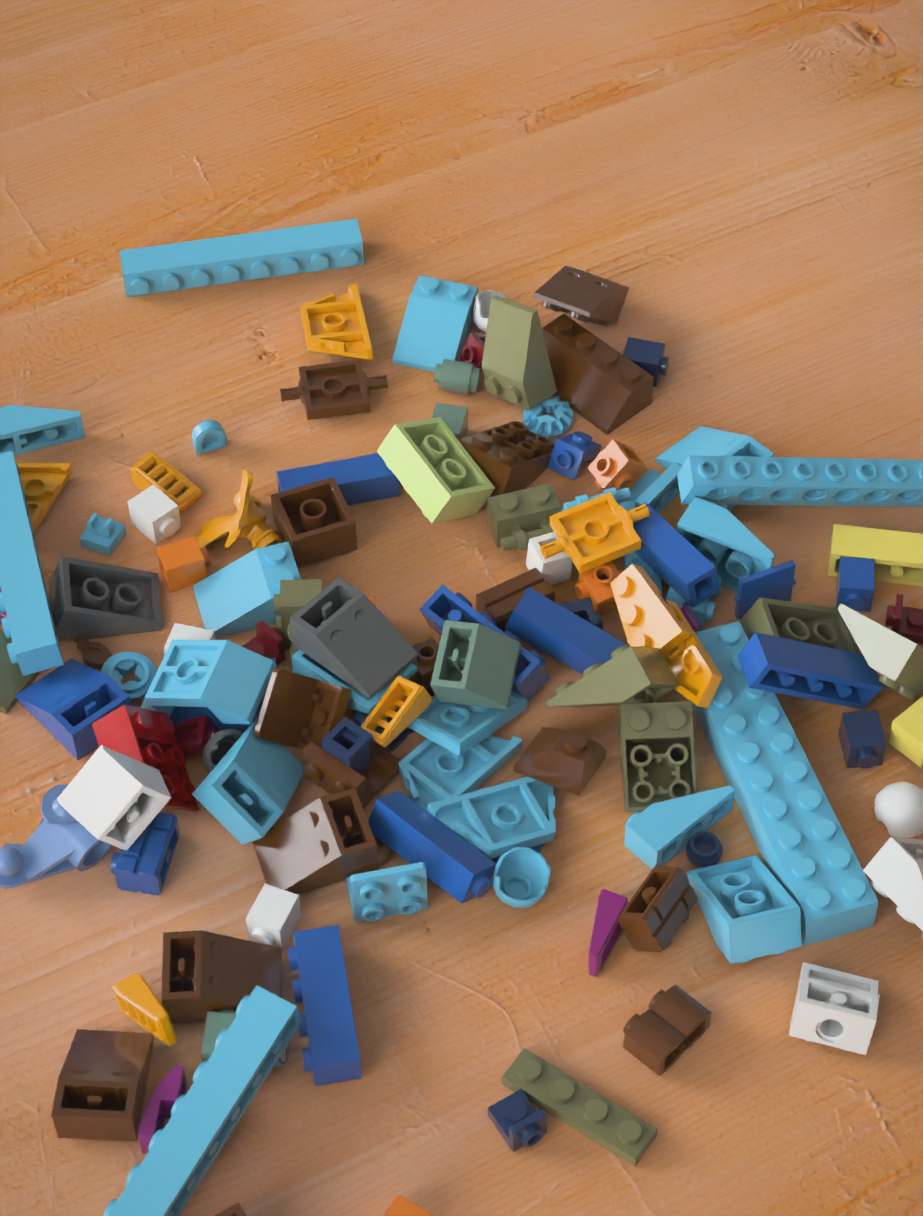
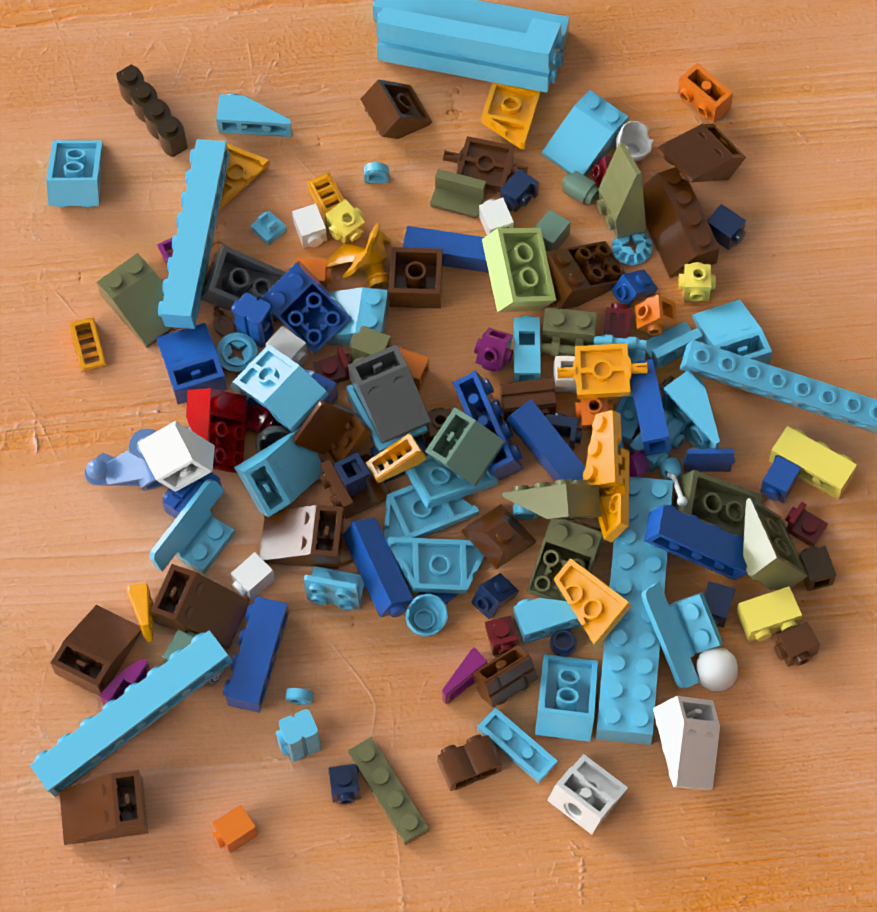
camera: 25 degrees right, 15 degrees up
(135, 625) = (253, 318): none -> blue brick
(170, 894) = (195, 533): none -> medium azure plate
(195, 591) = (306, 307): none -> blue slope
(197, 369) = (395, 109): none -> reddish brown slope
(198, 494) = (345, 222): none -> light yellow brick
(259, 277) = (472, 49): none -> medium azure brick
(317, 426) = (458, 193): none -> olive panel
(370, 432) = (495, 215): none -> white brick
(388, 401) = (519, 190): none -> dark blue brick
(405, 1035) = (299, 696): none -> medium azure tile
(433, 1077) = (298, 735): none -> medium azure brick
(448, 552) = (494, 349): none -> magenta brick
(484, 551) = (526, 348): none -> medium azure brick
(547, 243) = (705, 93): none -> orange brick
(572, 484) = (617, 320): none -> dark red bracket
(579, 720) = (522, 513): none -> medium azure tile
(589, 828) = (493, 595): none -> dark blue bracket
(624, 869) = (501, 635): none -> dark red bracket
(644, 423) = (697, 282): none -> light yellow brick
(716, 986) = (517, 745): none -> medium azure plate
(720, 778) = (591, 600): none -> light orange wing
(732, 615) = (673, 472): none -> hinge
(845, 774) = (682, 630): none -> medium azure plate

